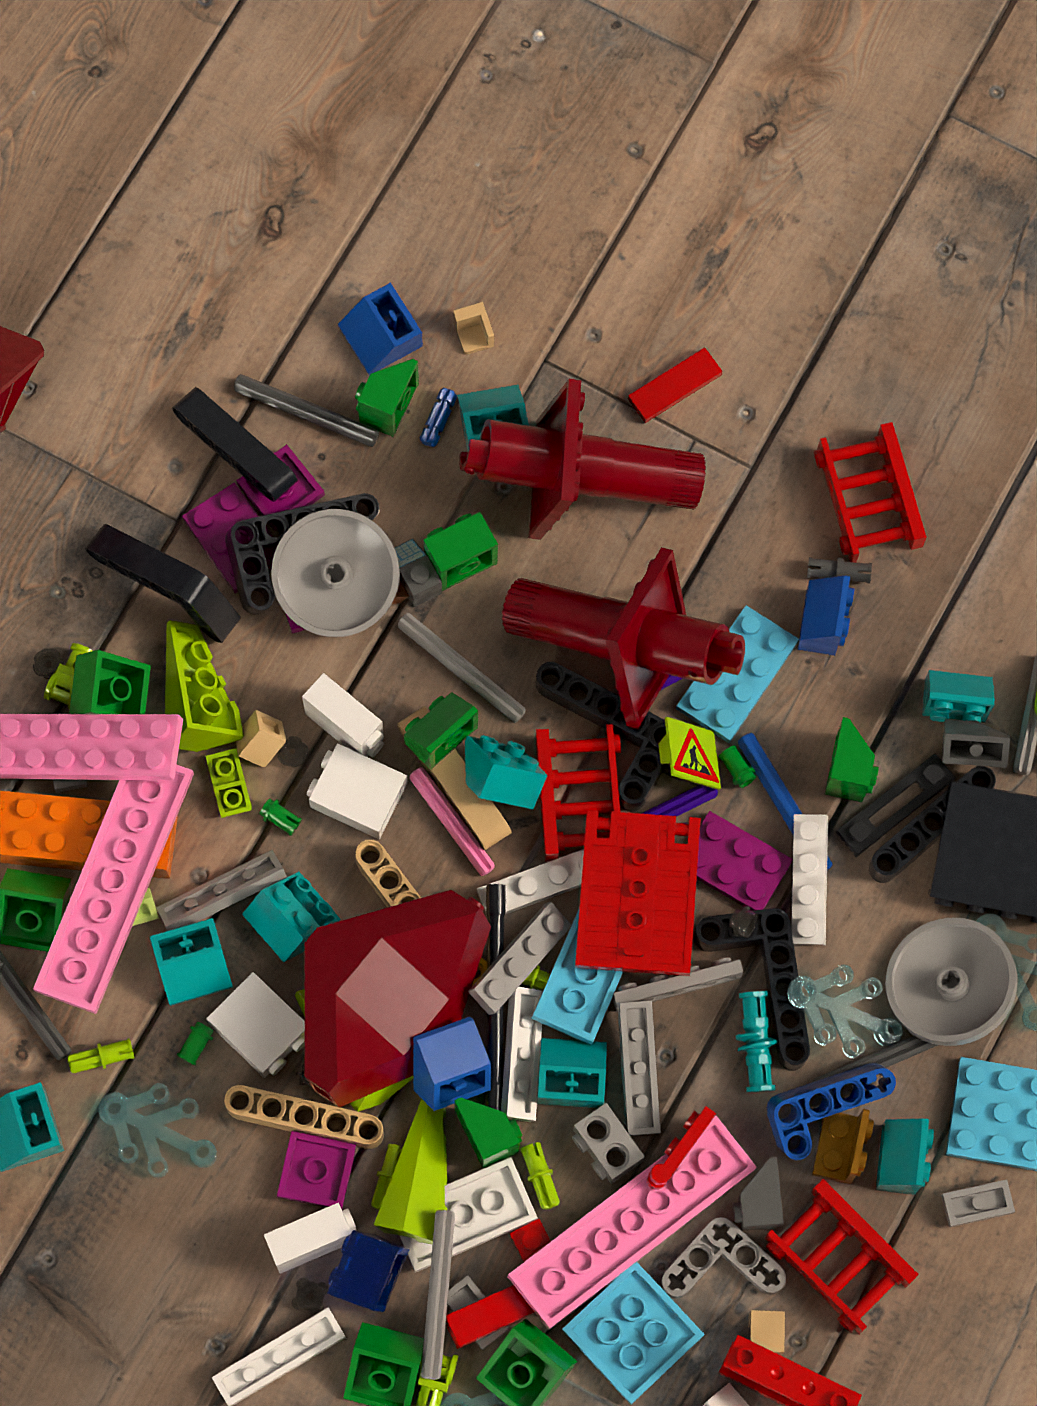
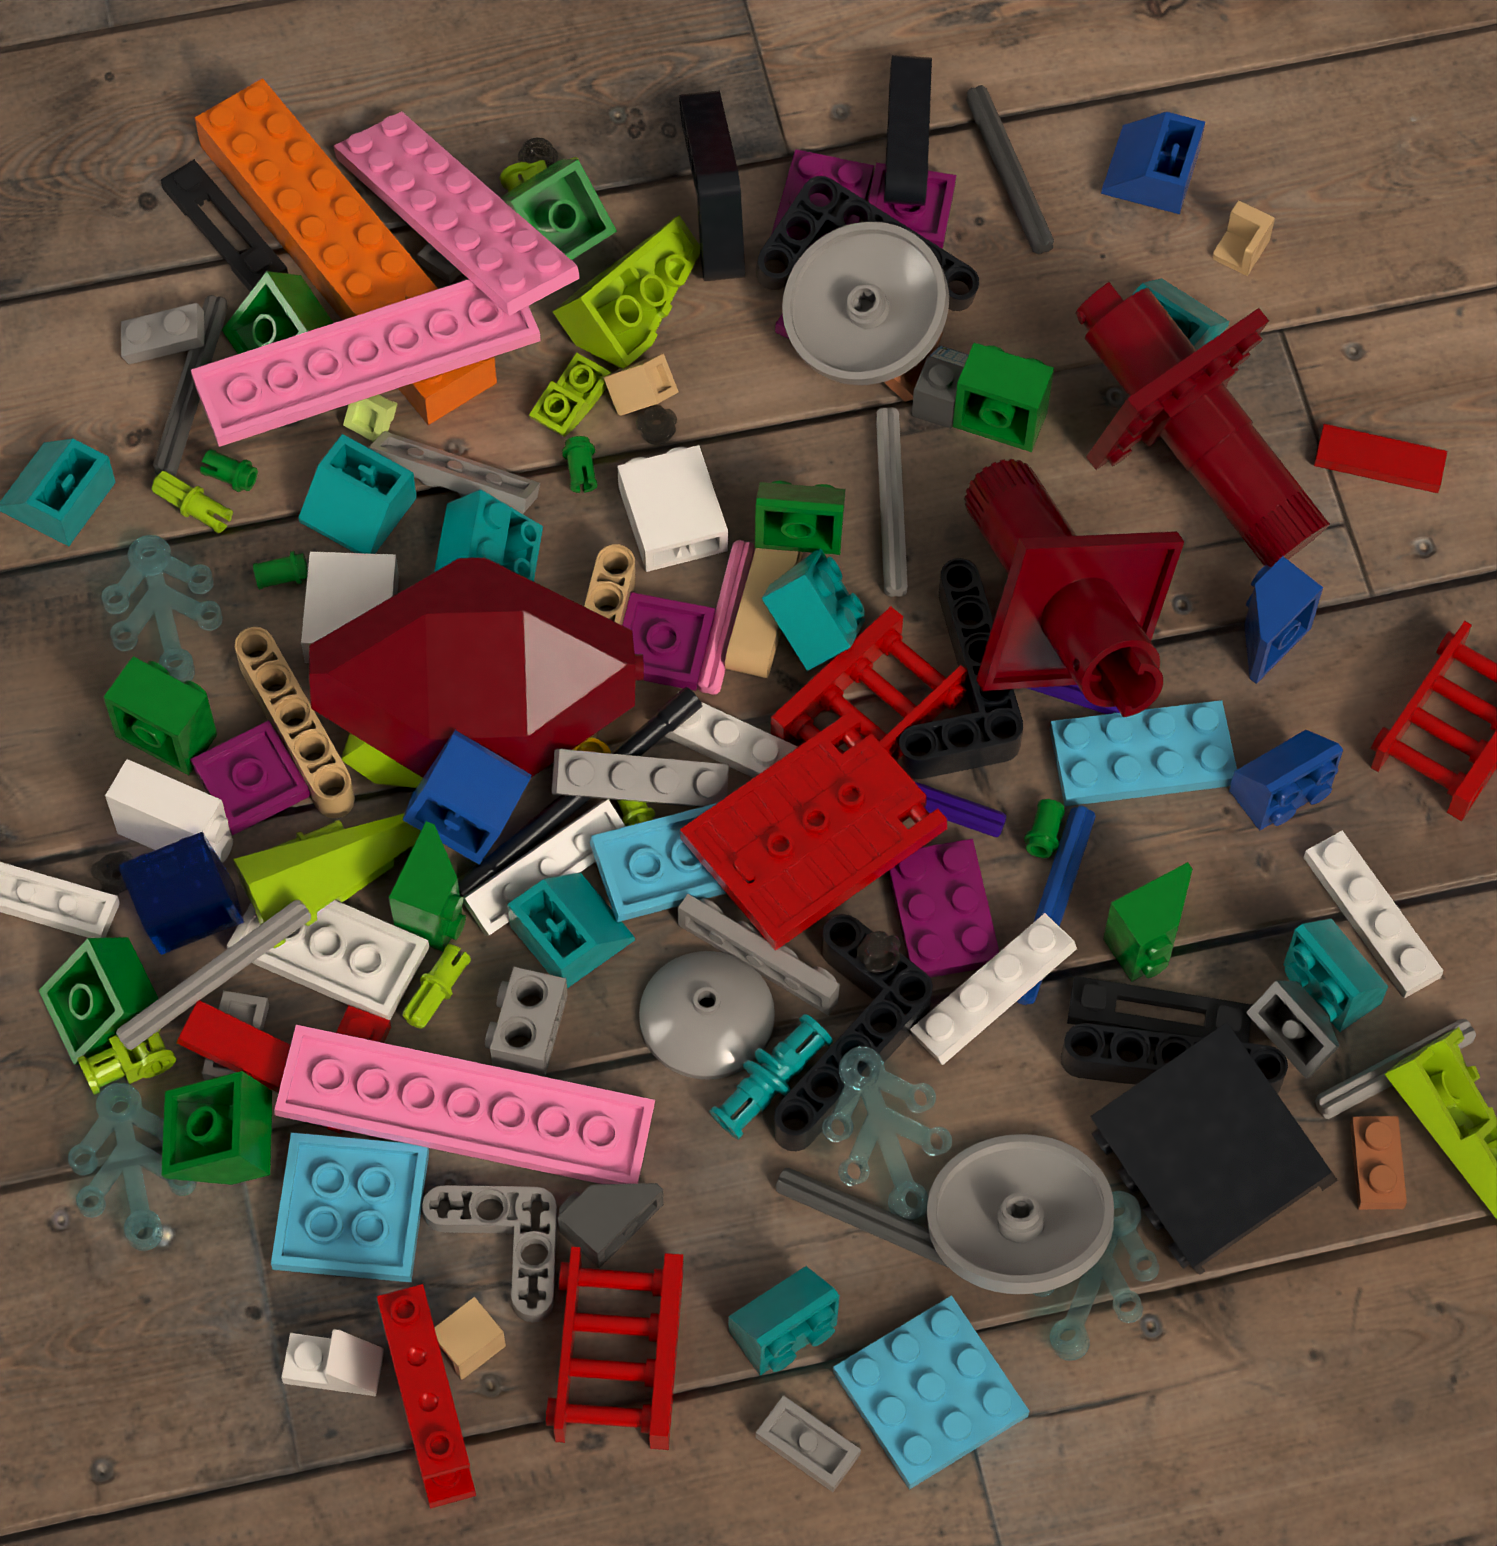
camera: 50 degrees right, 10 degrees down
(105, 1015) = (229, 470): none -> green pin
(238, 1188) = (160, 714): none -> green brick
(343, 717) = (730, 429): white brick -> none
(387, 396) = (1094, 214): green slope -> none
(438, 417) = (1126, 279): blue axle -> none
(438, 865) = (670, 638): none -> magenta plate
(638, 1067) = (633, 983): light grey plate -> none
(679, 1148) = (582, 1085): red plate -> none
(690, 753) = (1011, 765): lime piece -> none
(701, 1061) = (710, 1039): none -> light grey dish
(728, 533) = (1278, 614): none -> blue slope
(831, 1103) = (774, 1199): blue beam -> none
(839, 568) = (1354, 759): dark grey pin -> none
(840, 1146) = (741, 1253): pearl gold bracket -> none
(936, 643) = (1373, 914): none -> white plate

